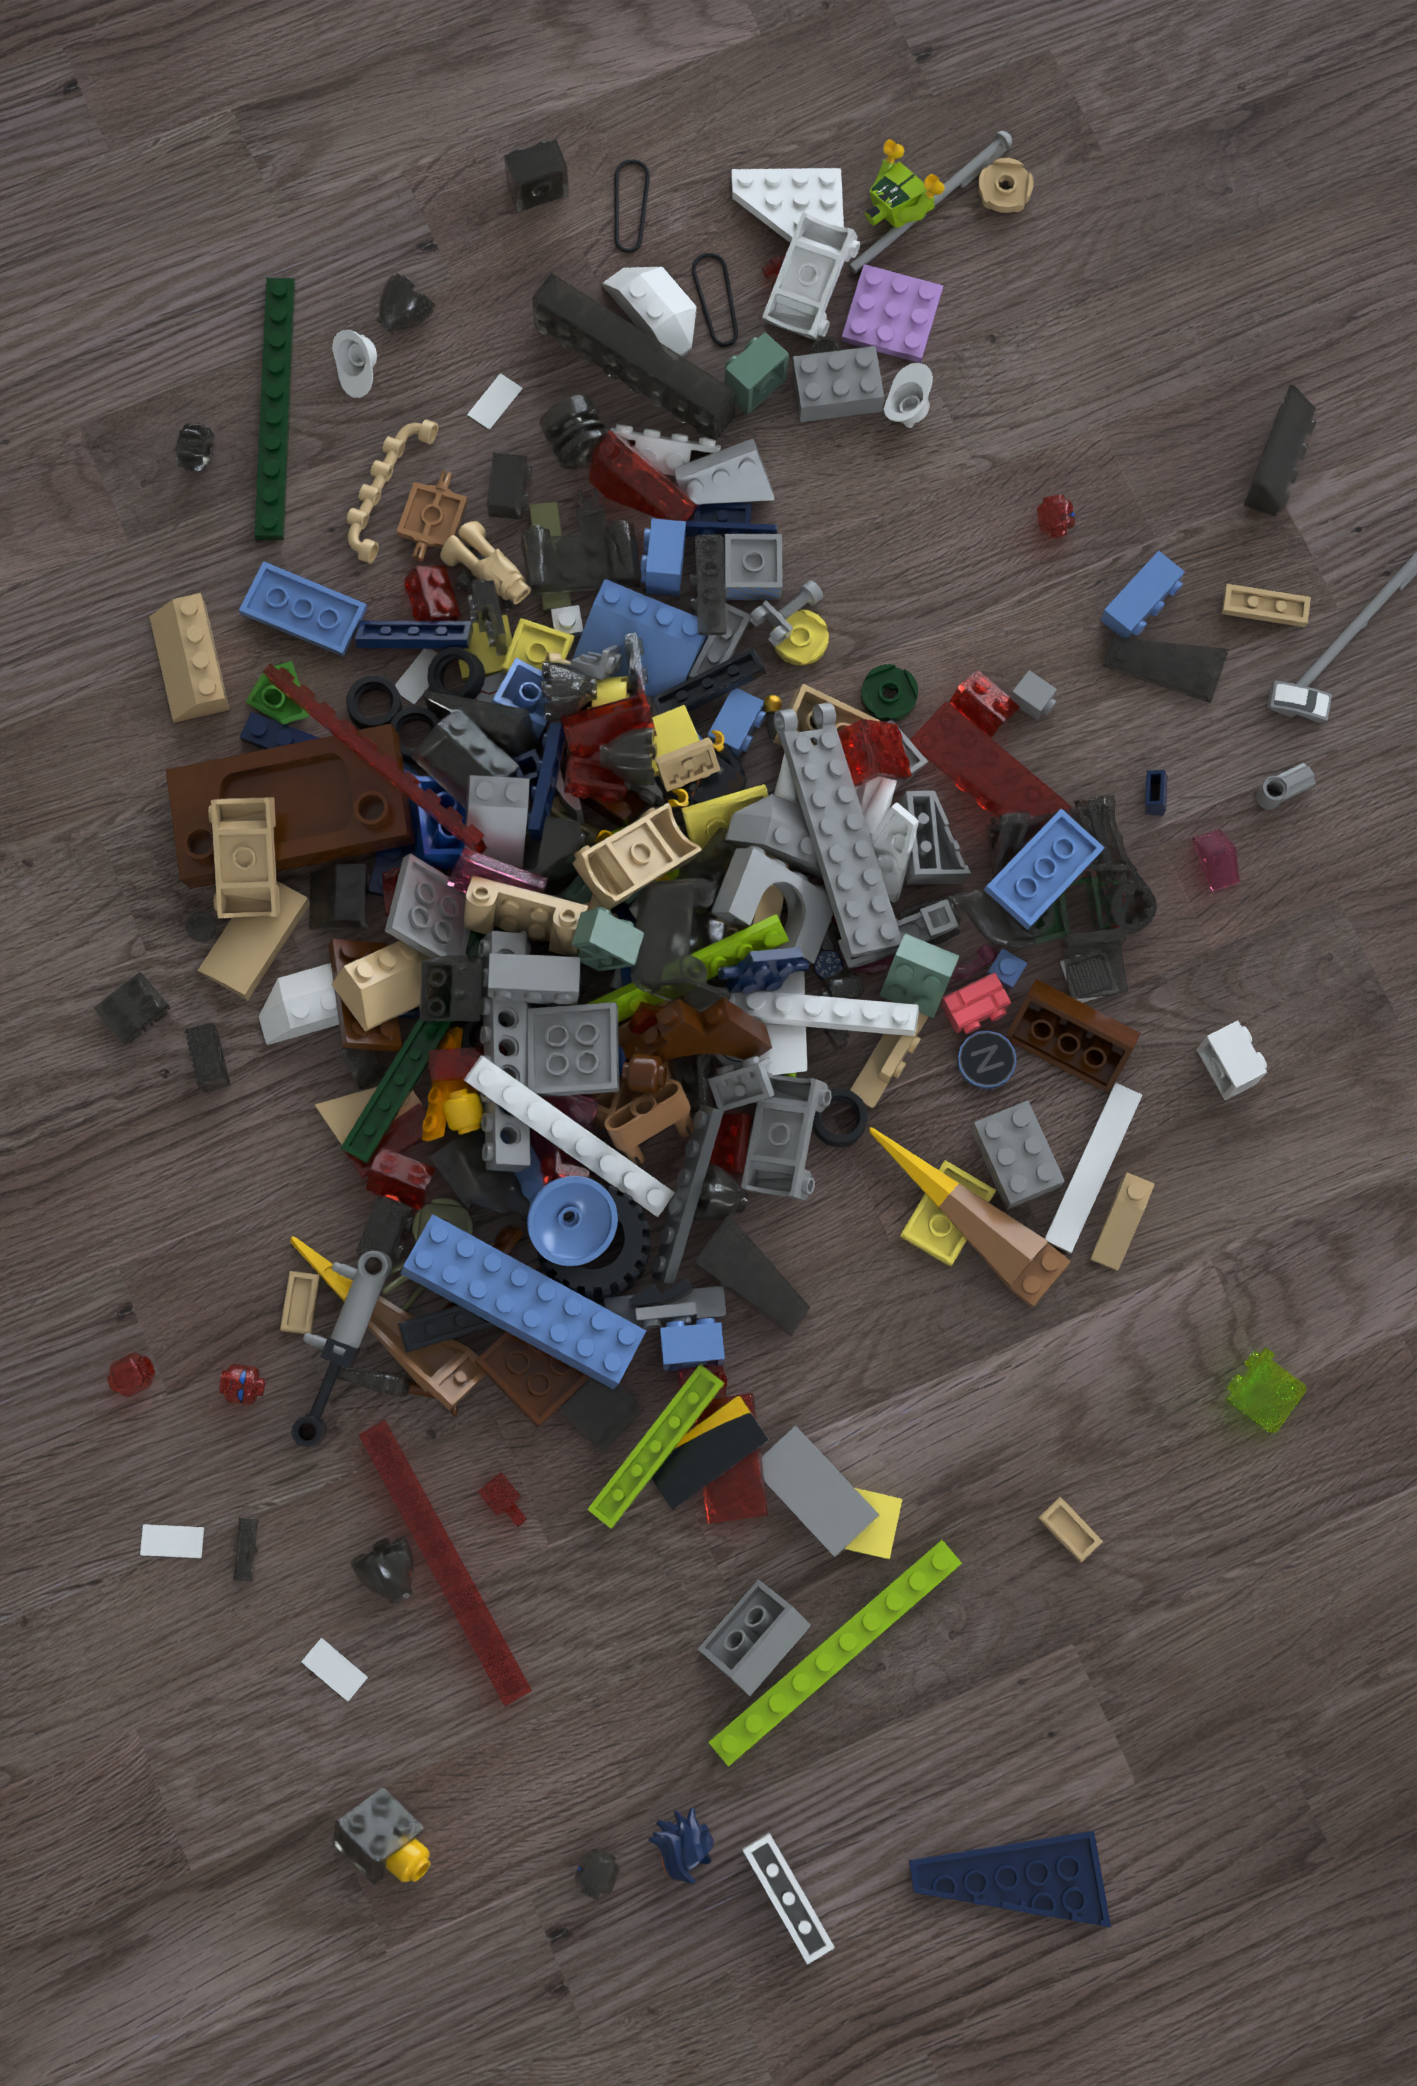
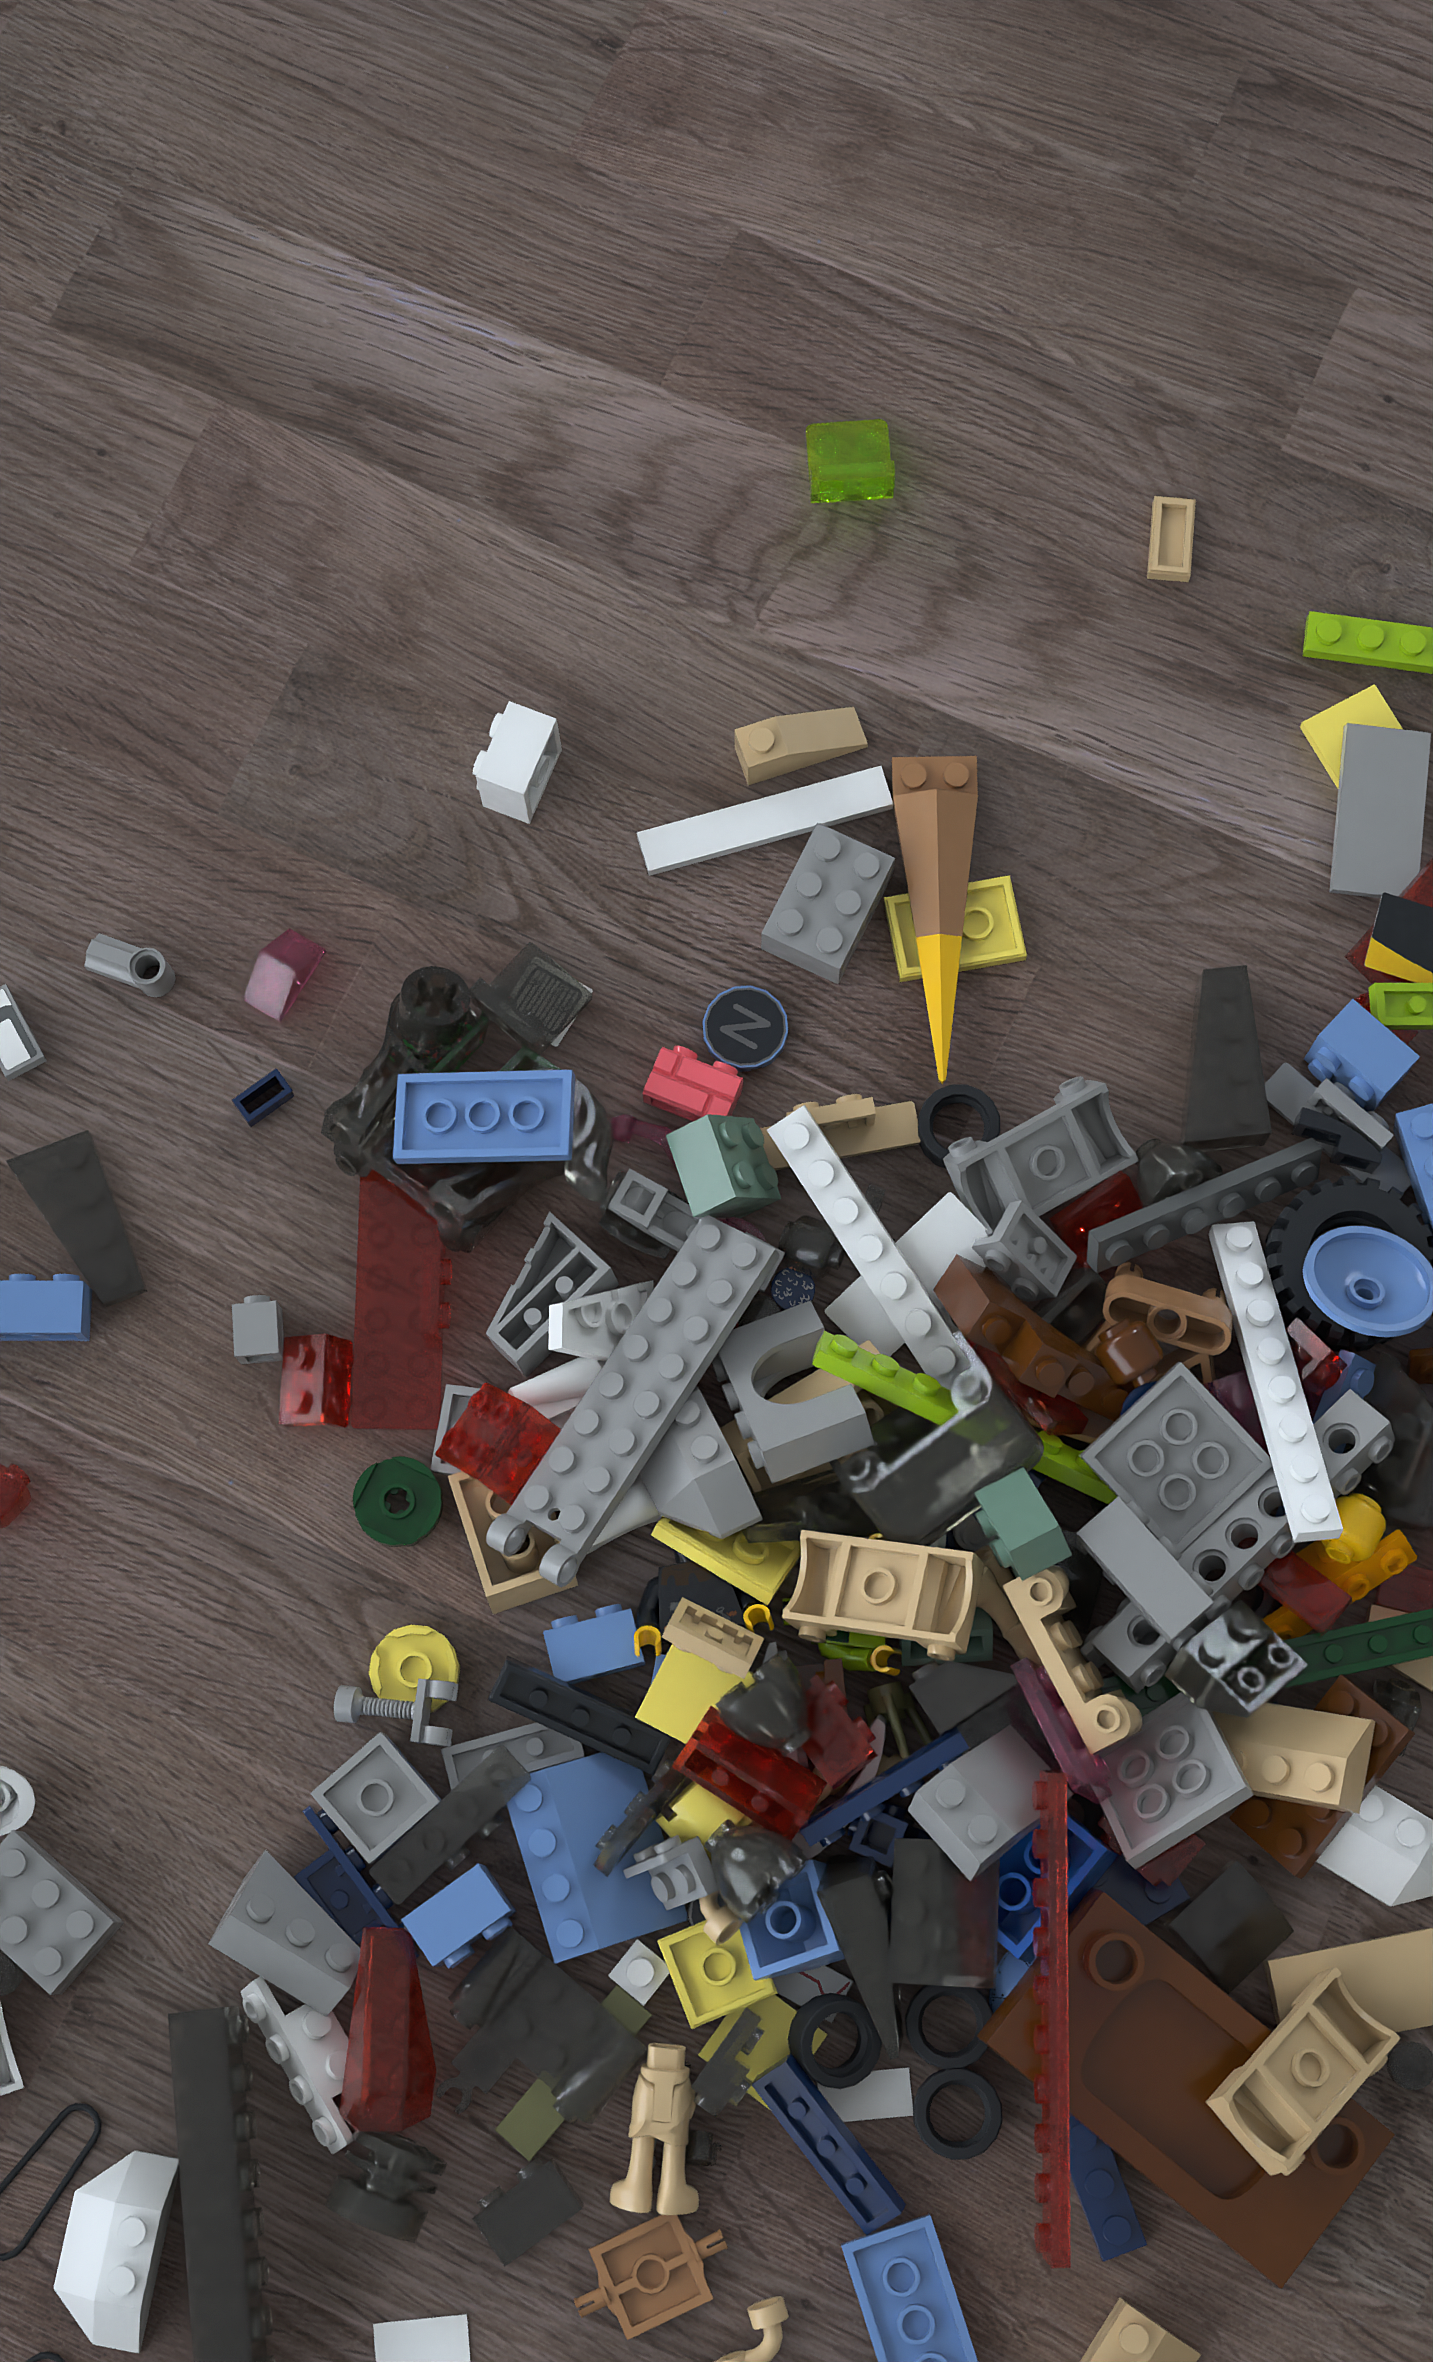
camera: 125 degrees left, 0 degrees up
(273, 702) = (1024, 2256): bright green slope -> none
(431, 594) = (755, 2174): clear red bracket -> none
(756, 371) = (110, 2024): sand green brick -> none
(763, 970) = (882, 1332): dark blue plate -> none
(771, 704) = (531, 1625): piece -> none
(1007, 968) = (619, 1092): medium blue plate -> none
(1072, 1036) = (635, 956): reddish brown slope -> none

